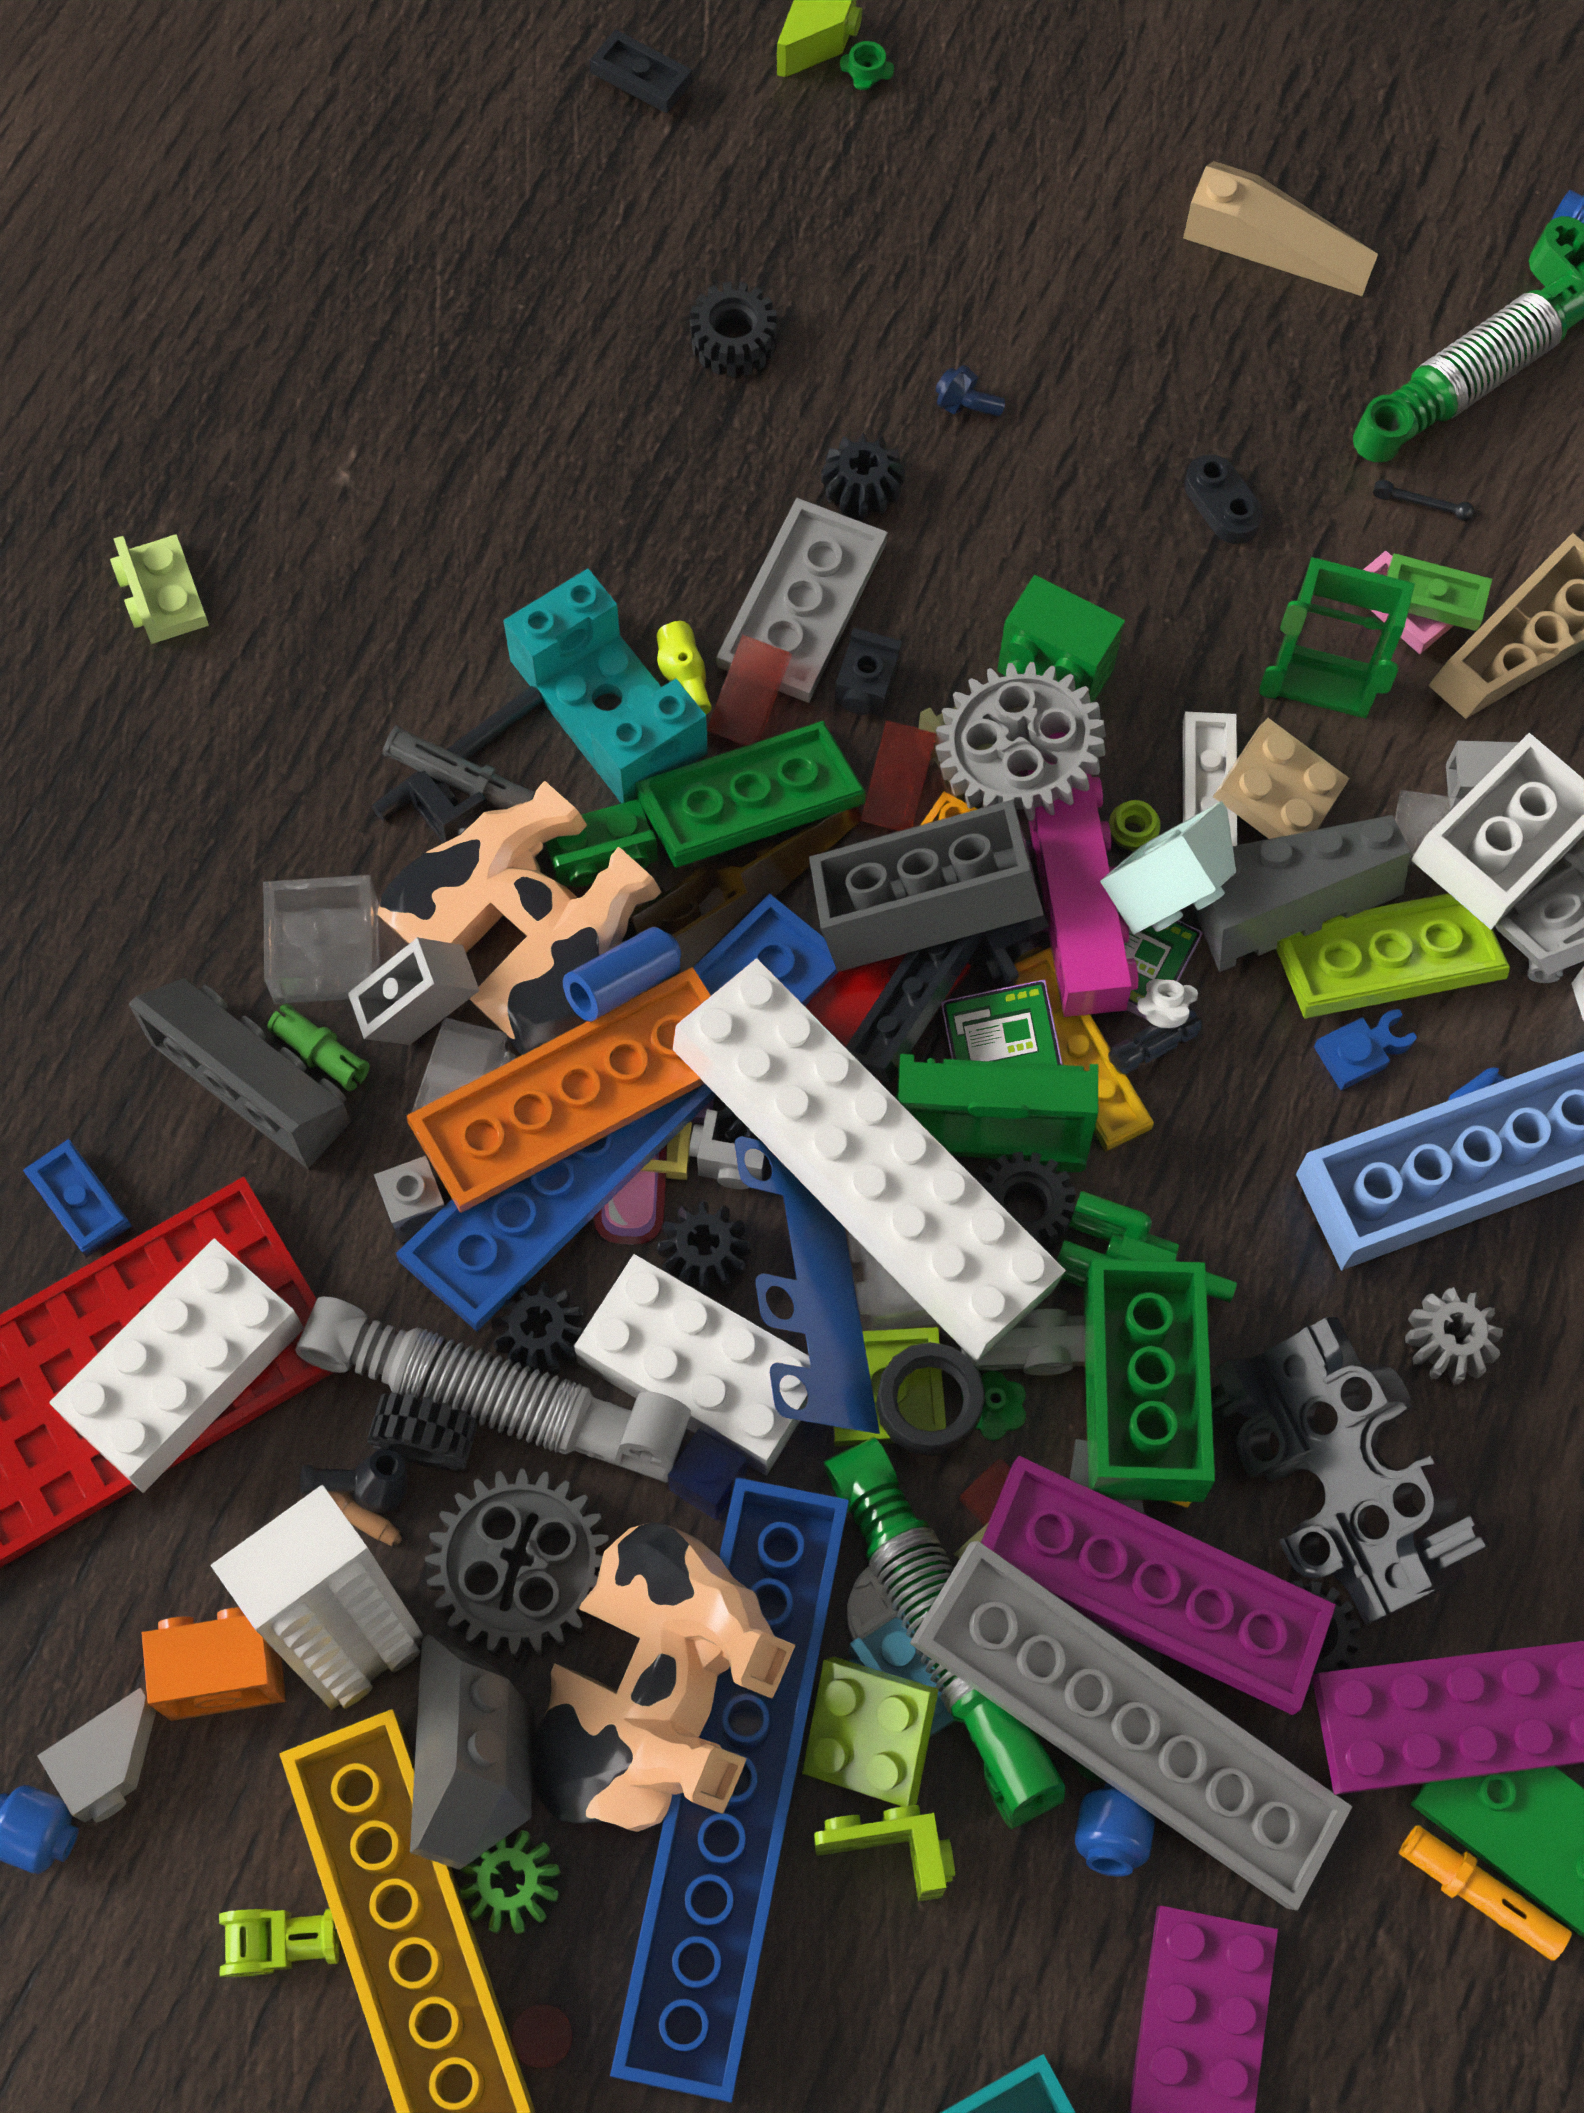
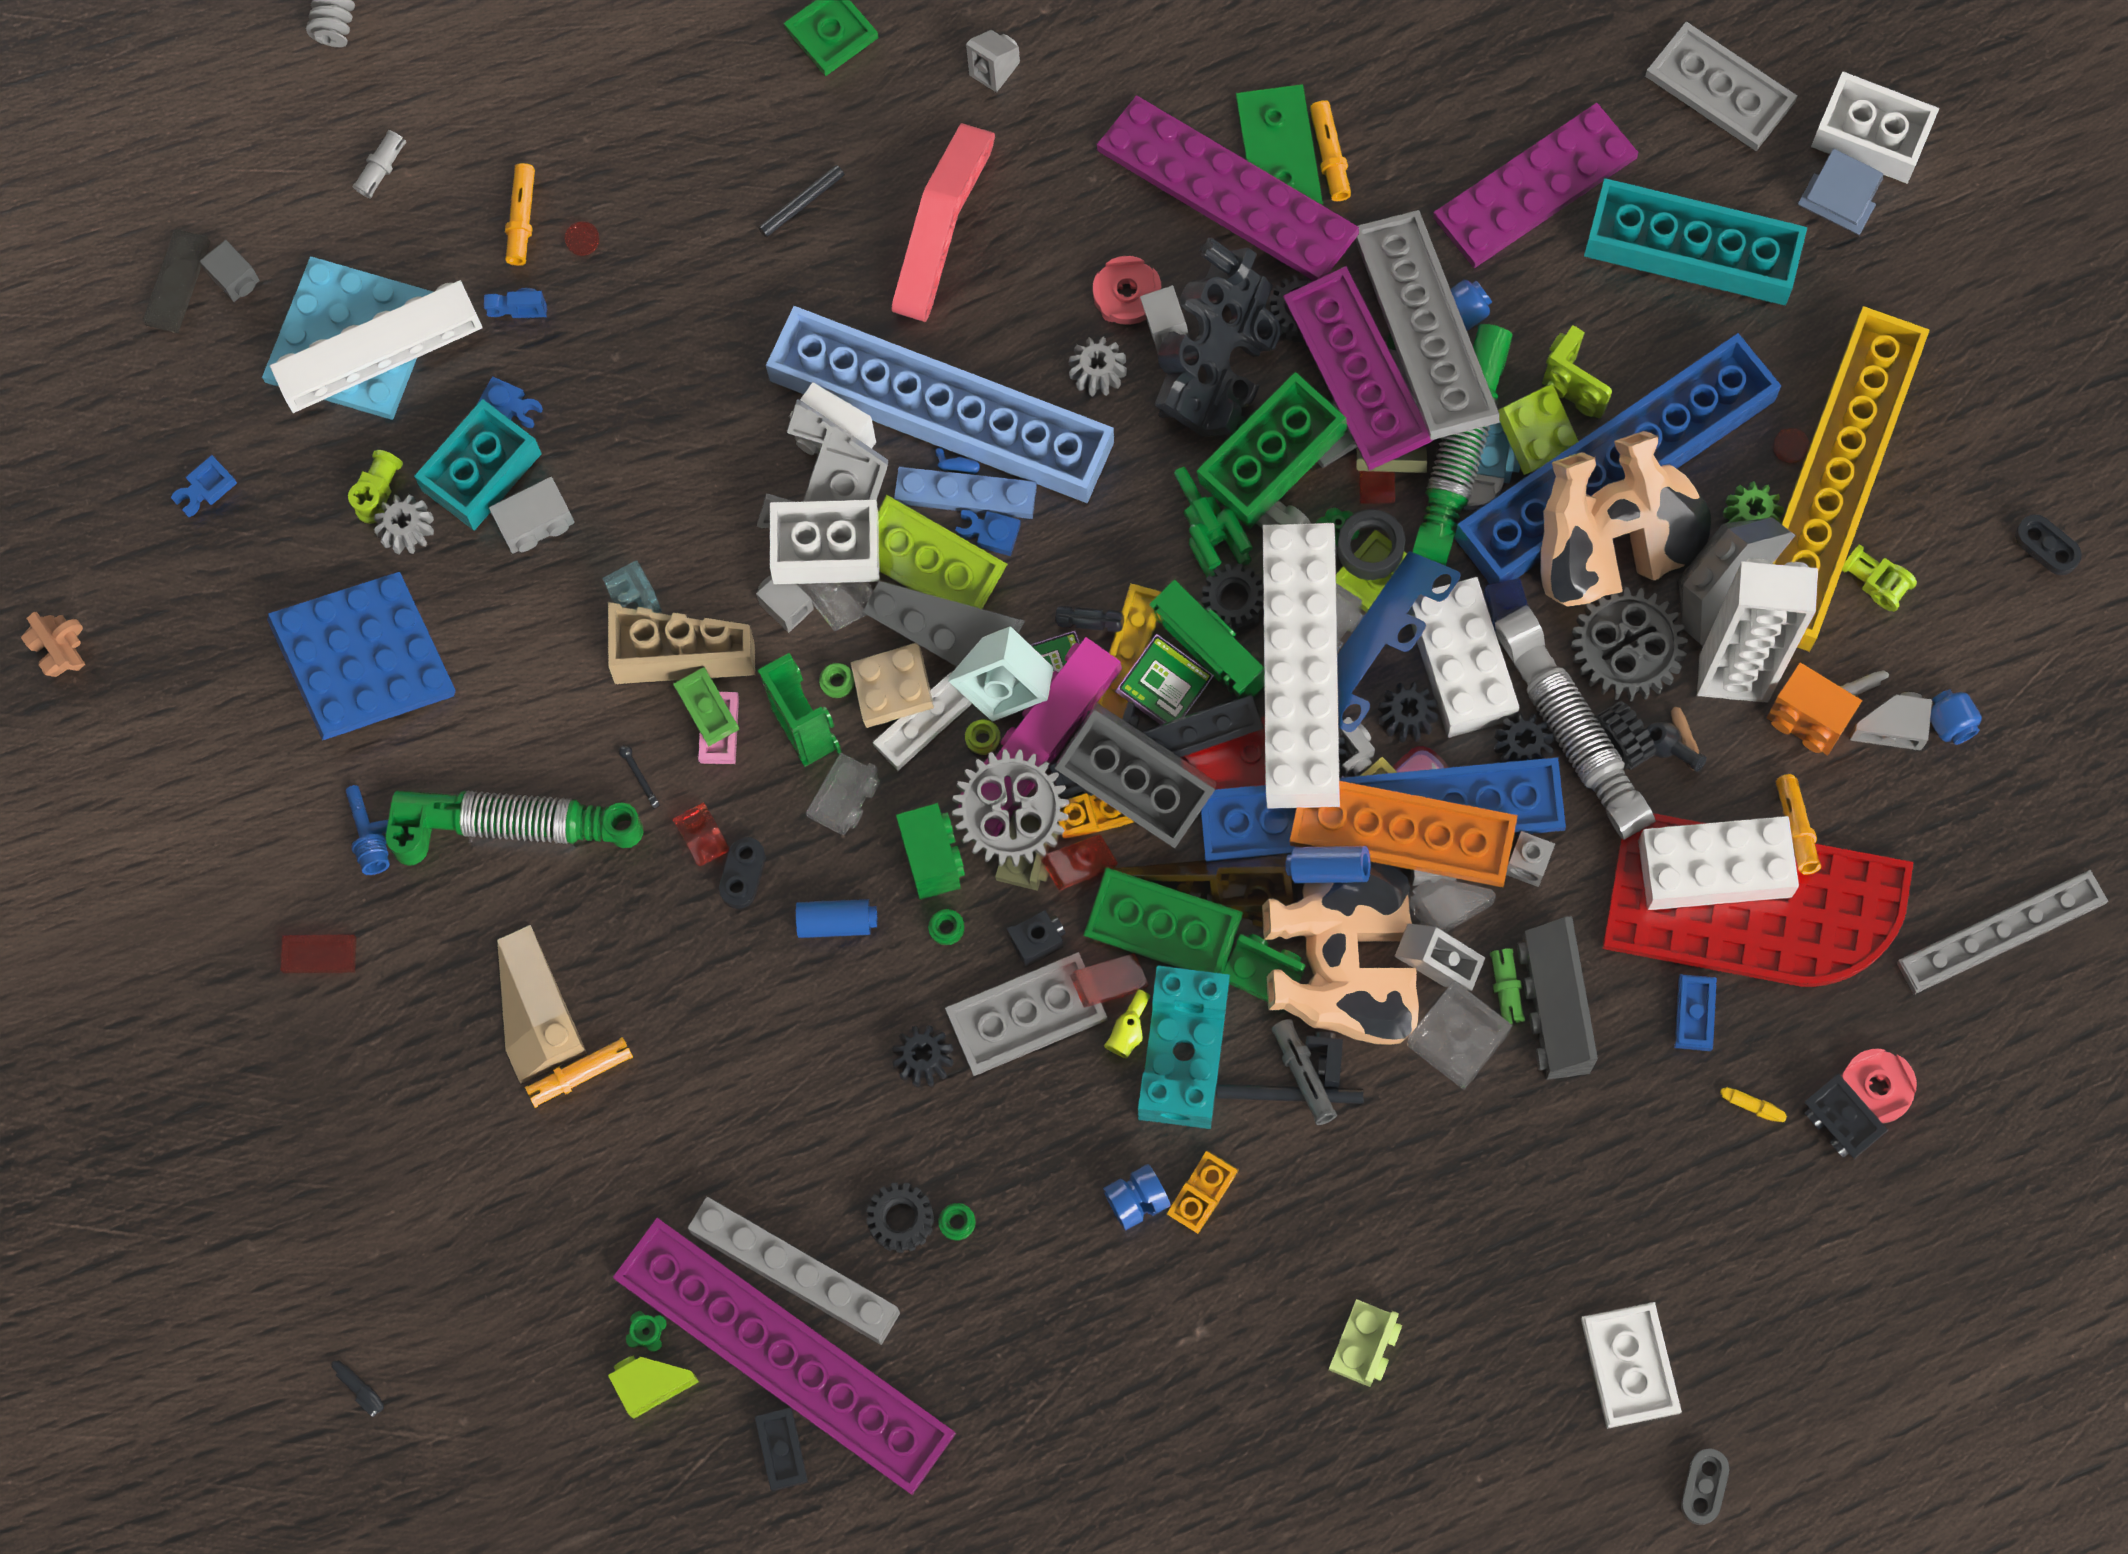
camera: 130 degrees left, 5 degrees up
(123, 1508) = (1802, 835): none -> light orange pin
(200, 1752) = (1865, 683): none -> light grey piece
(459, 590) = (1202, 1192): none -> light orange slope
(520, 517) = (1136, 1197): none -> blue wheel
(676, 360) = (952, 1211): none -> green plate
(719, 140) = (784, 1356): none -> magenta plate
(783, 203) = (794, 1270): none -> light grey brick
(958, 391) = (816, 1061): dark blue plate -> none
(969, 603) = (946, 916): none -> green plate
(1086, 524) = (835, 918): none -> blue brick
(1167, 1002) = (1077, 622): white plate -> none
(1174, 190) = (578, 1072): none -> light orange pin
(1209, 651) = (843, 793): none -> clear bracket
(1305, 491) = (701, 834): none -> clear red bracket
(1344, 739) = (832, 671): none -> bright green plate
(1437, 1062) = (965, 492): none -> medium blue plate
(1437, 1429) = (1163, 314): none -> light grey brick
(1494, 1483) = (1122, 271): none -> coral plate
(1519, 113) = (318, 953): none -> clear red tile

